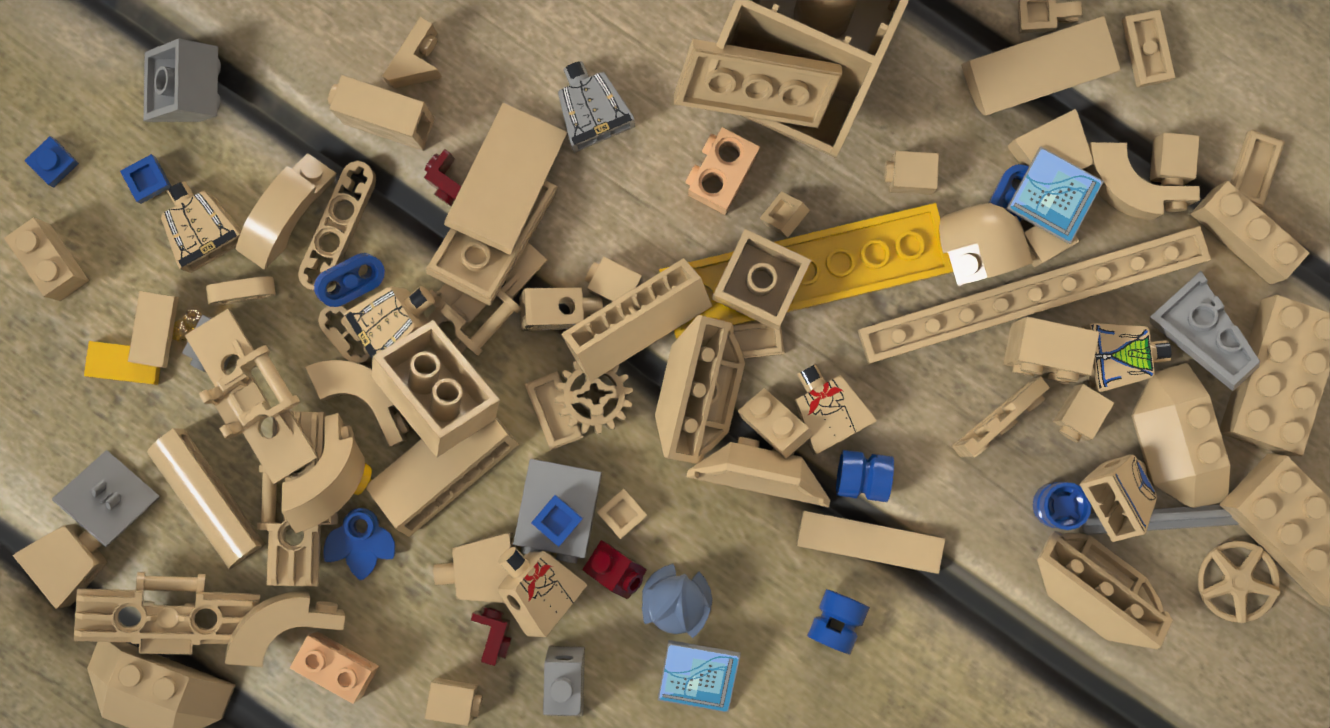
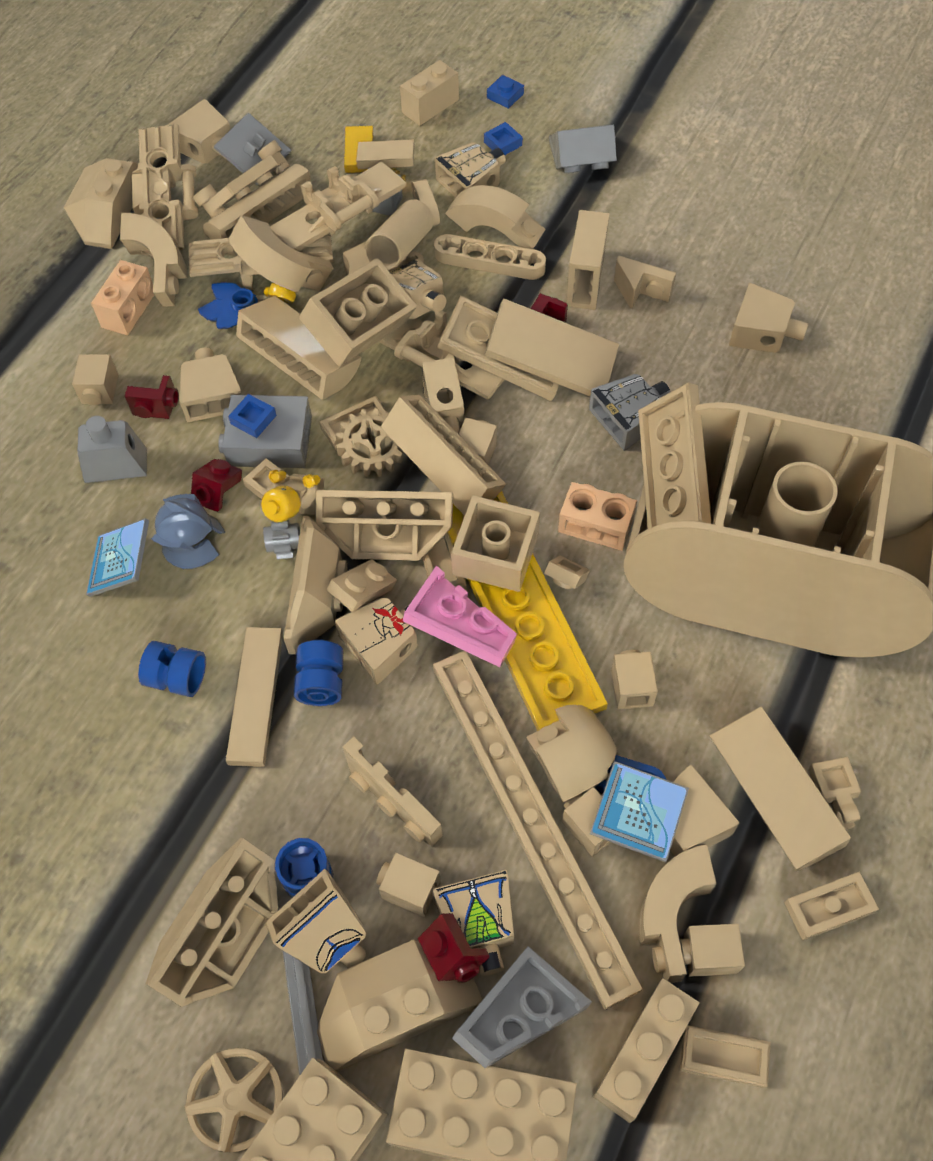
camera: 80 degrees right, 25 degrees down
(171, 507) = (238, 188): none -> tan plate
(306, 327) = (400, 234): none -> tan piece
(348, 282) = (446, 264): blue plate -> none
(537, 590) = (191, 414): tan torso -> none
(662, 484) = (290, 497): none -> yellow piece
(701, 501) = (281, 538): none -> light grey gear
(833, 331) = (454, 618): none -> bright pink wing
(1051, 349) = (471, 826): tan brick -> none
(1155, 384) = (450, 952): none -> dark red bracket

